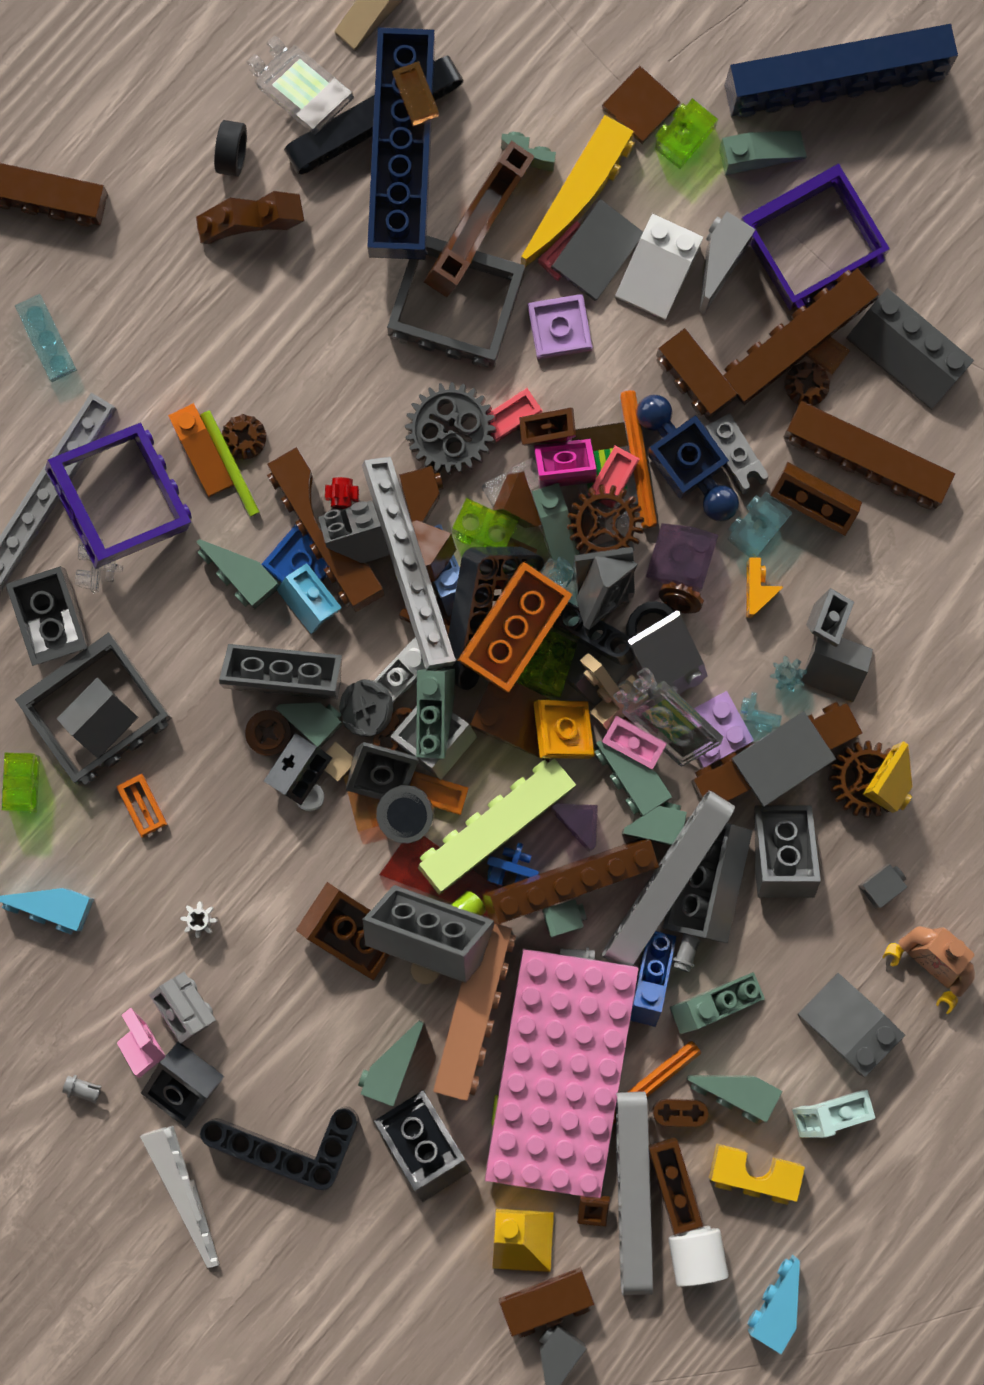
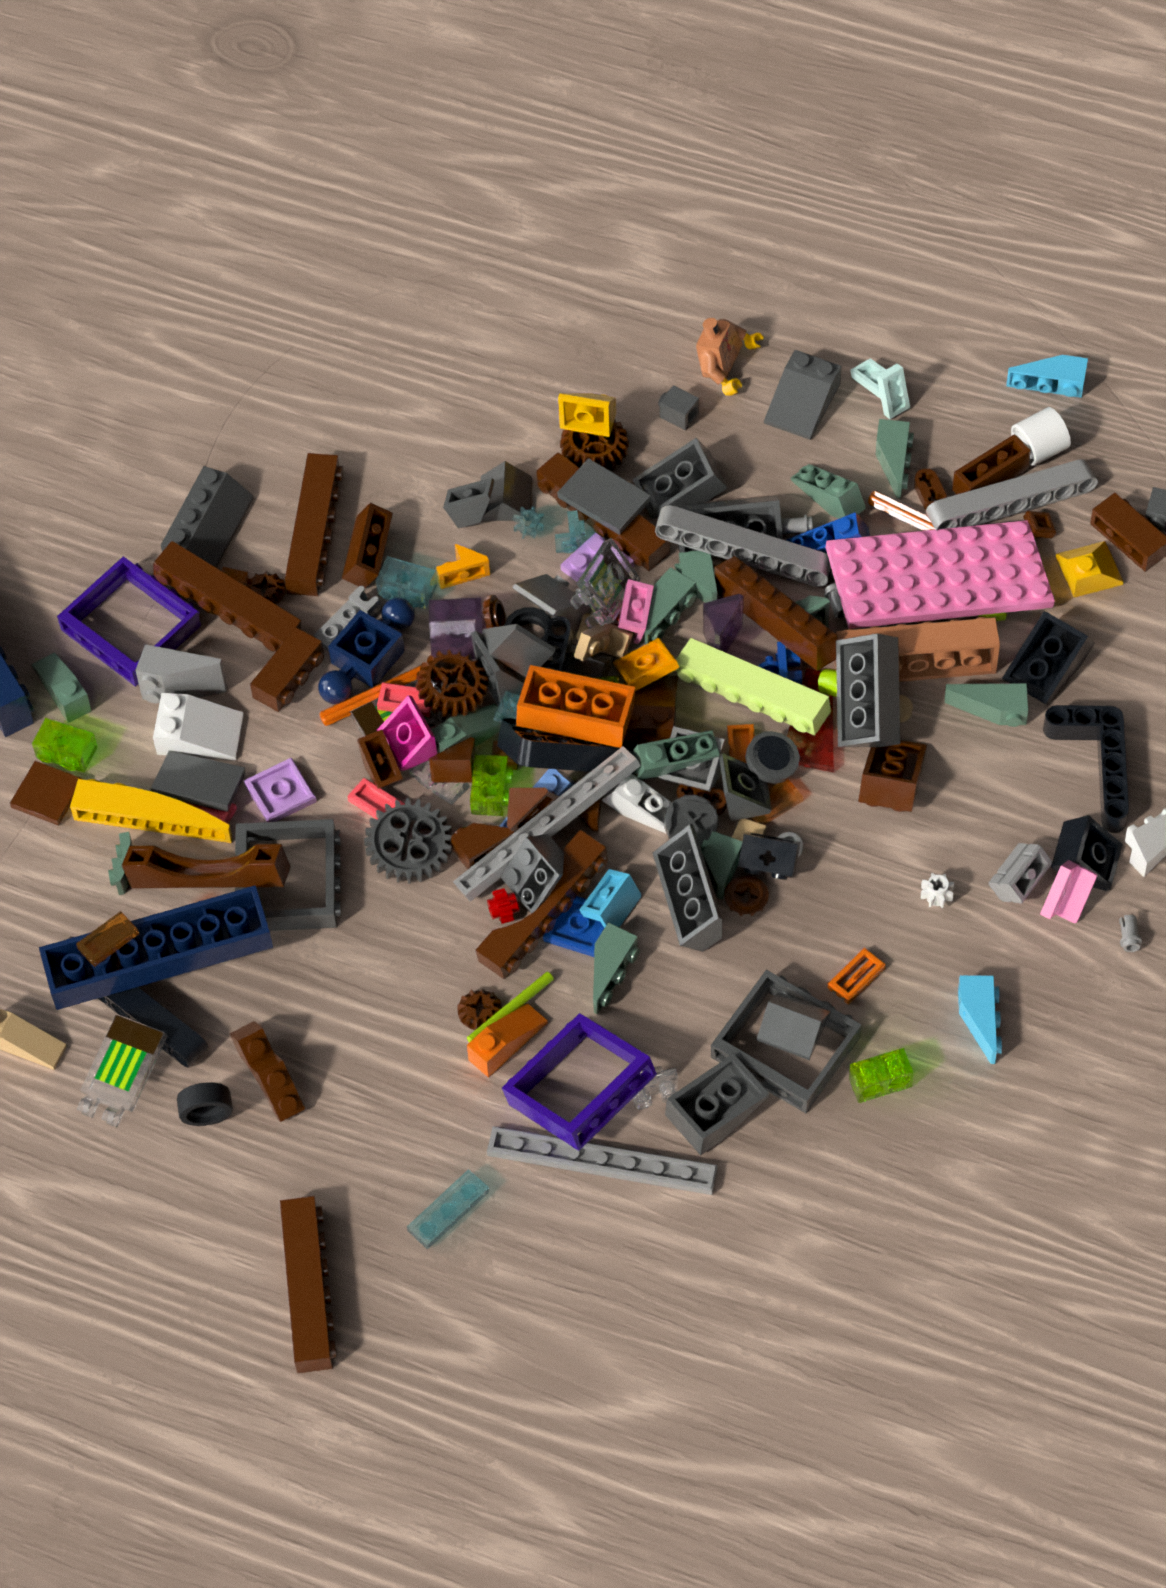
camera: 105 degrees left, 25 degrees down
(781, 1180) = (952, 405): yellow arch -> none

